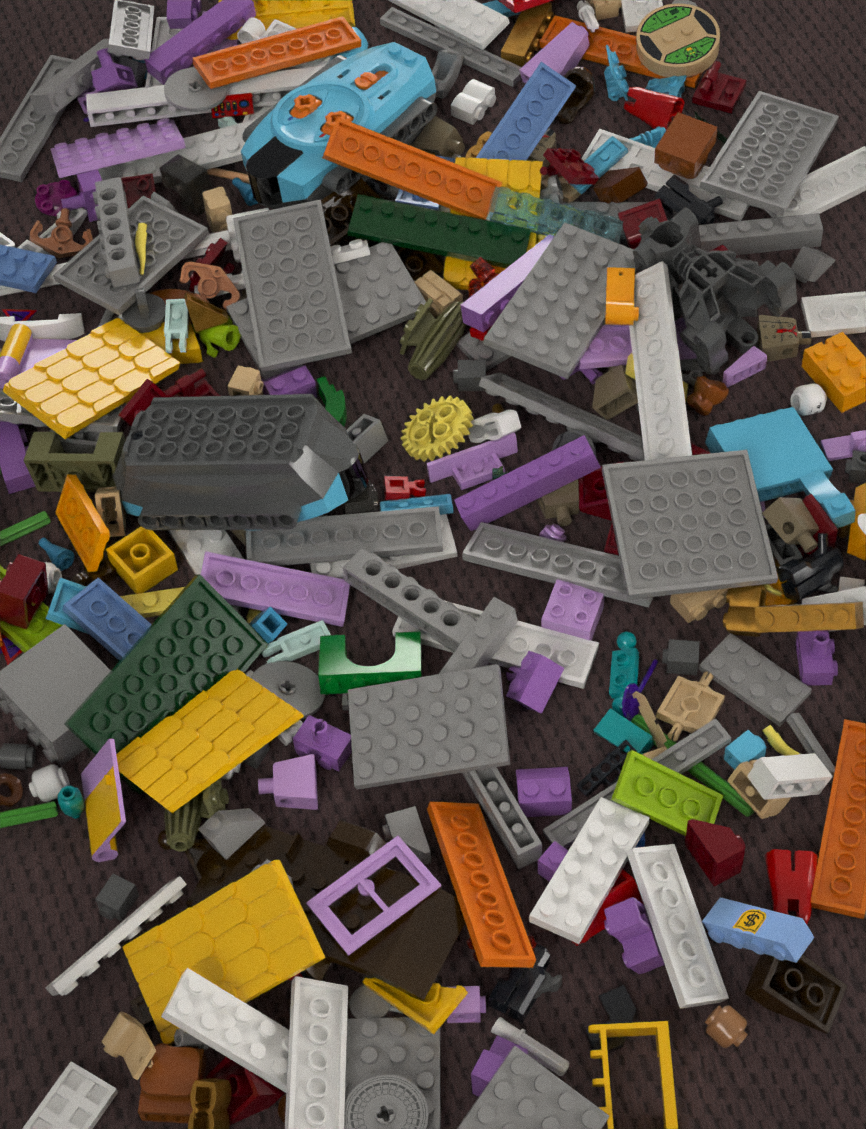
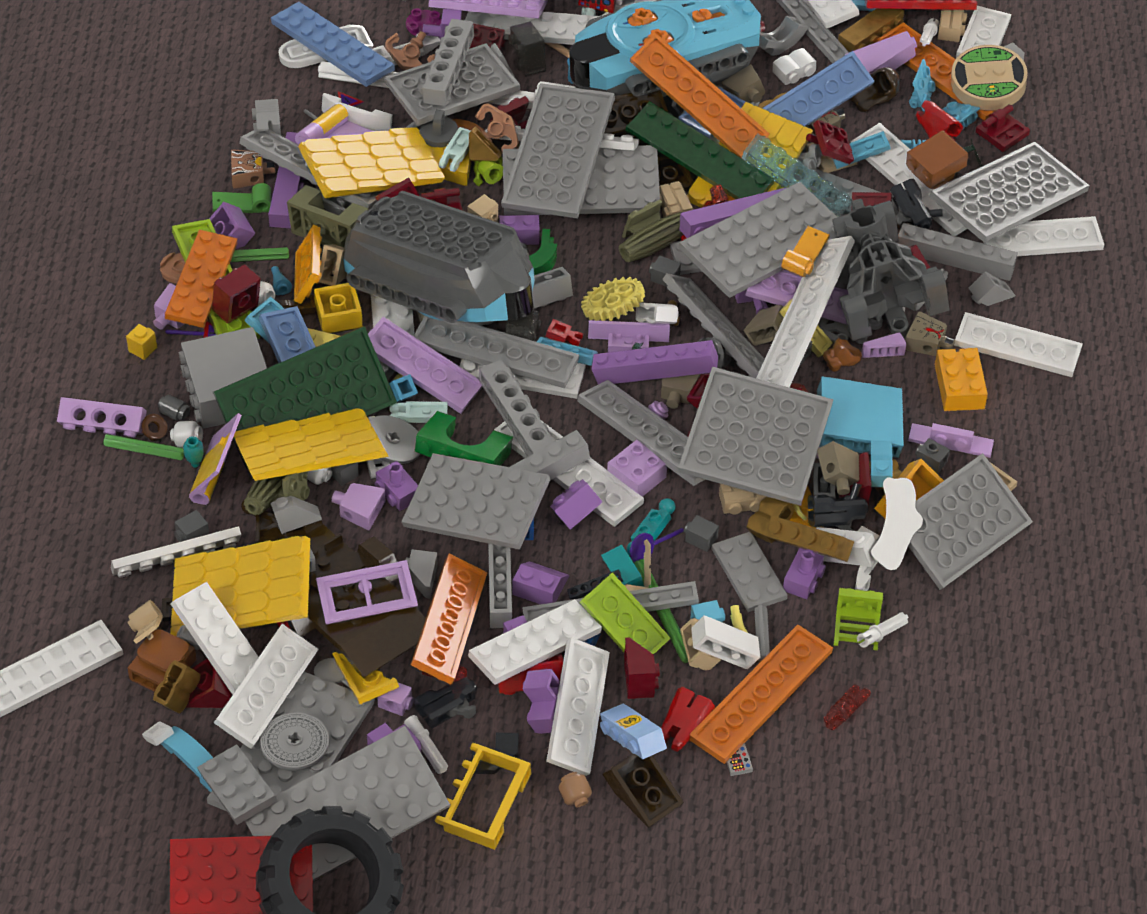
camera: 20 degrees right, 5 degrees down
(140, 245) = (461, 77): light yellow animal -> none
(217, 208) = (539, 71): tan brick -> none
(619, 184) = (870, 172): reddish brown slope -> none
(689, 705) = (686, 566): tan plate -> none
(808, 399) = (921, 389): white head -> none

